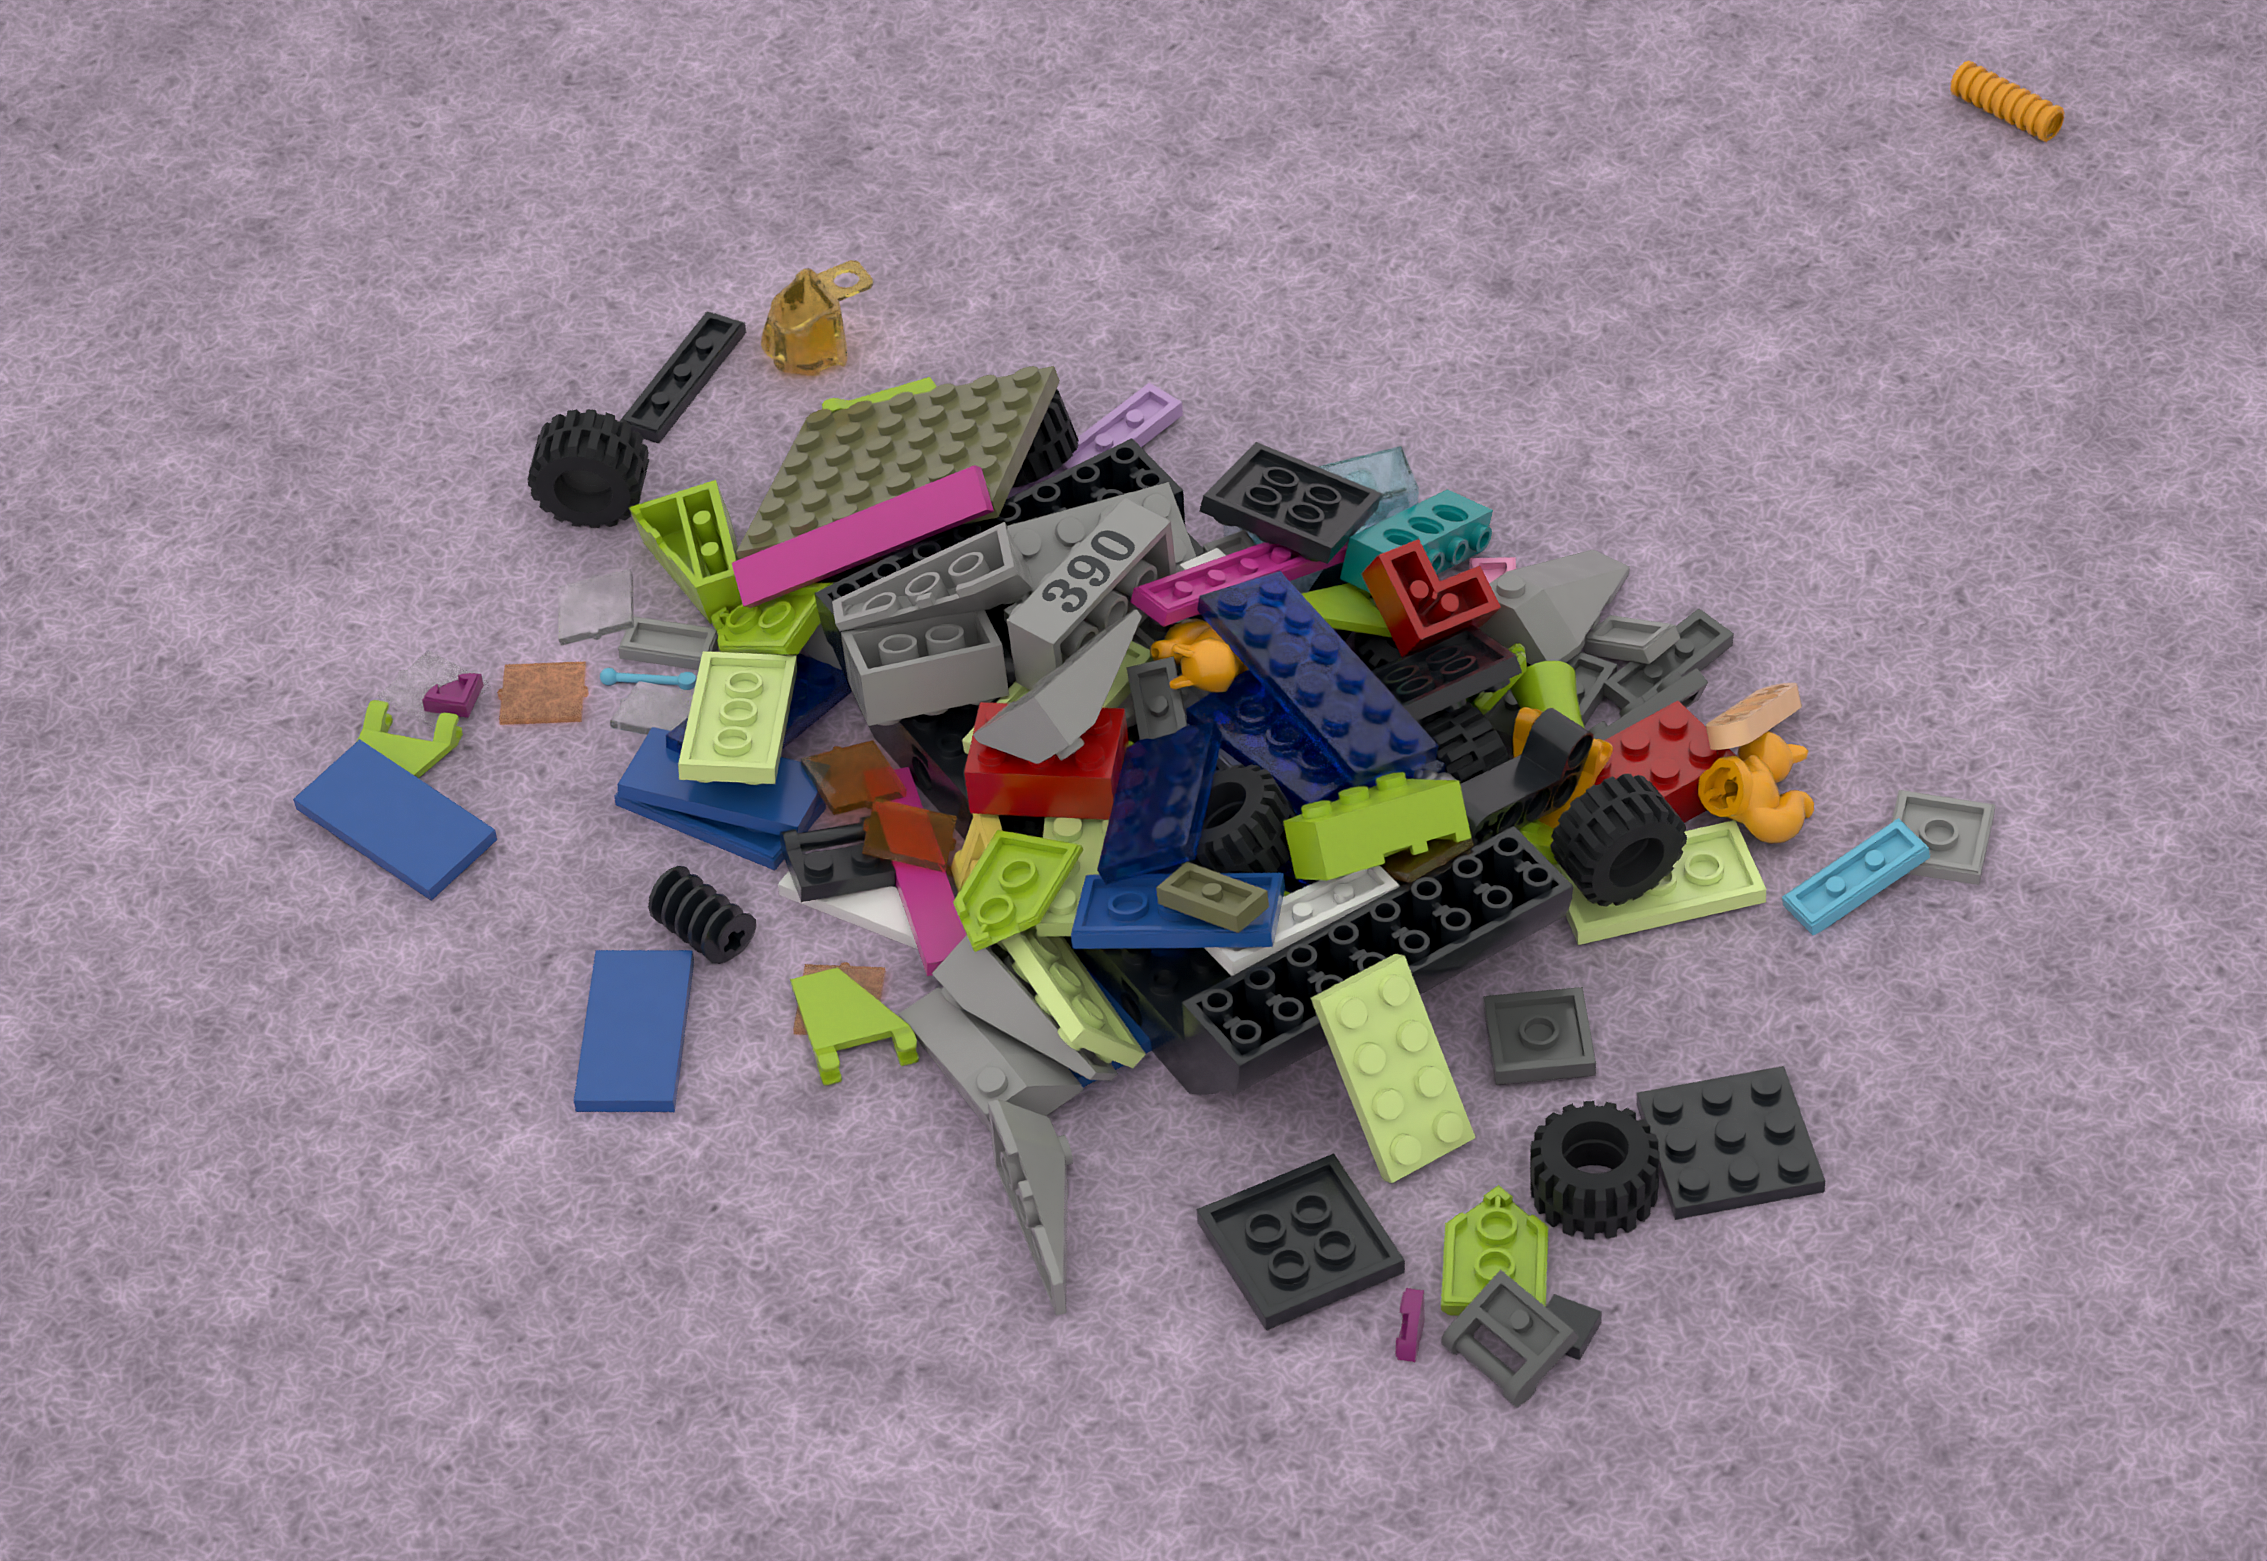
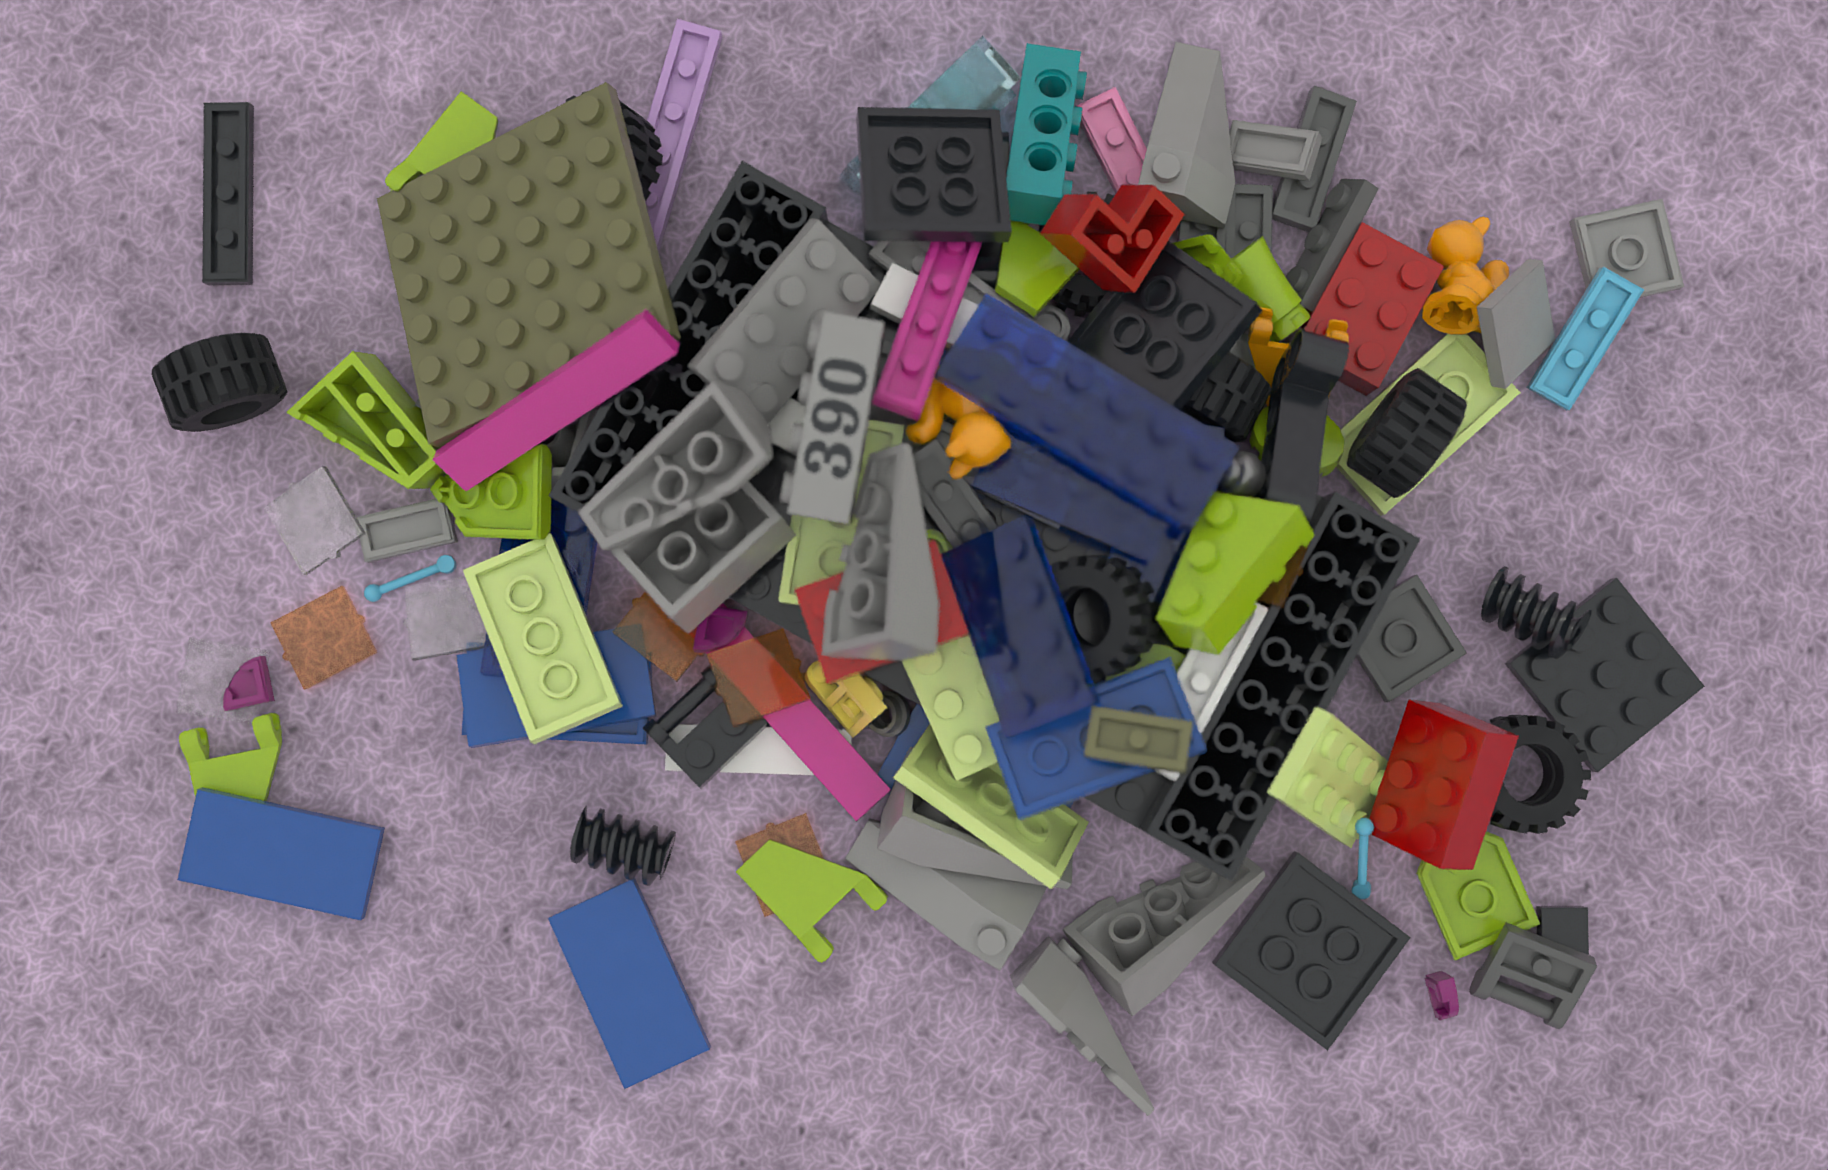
camera: 30 degrees left, 40 degrees up
(806, 320) = (312, 90): clear yellow piece -> none
(898, 785) = (719, 629): none -> magenta tile
(1013, 886) = (920, 759): lime tile -> none
(1132, 1172) = (1151, 937): none -> light grey wedge
(1406, 1137) = (1361, 887): none -> medium azure hinge
(1497, 1119) = (1441, 784): none -> red brick
(1677, 1045) = (1532, 615): none -> black piece
(1753, 716) = (1435, 211): light nougat beam -> none
(1783, 821) = (1516, 323): none -> light grey tile

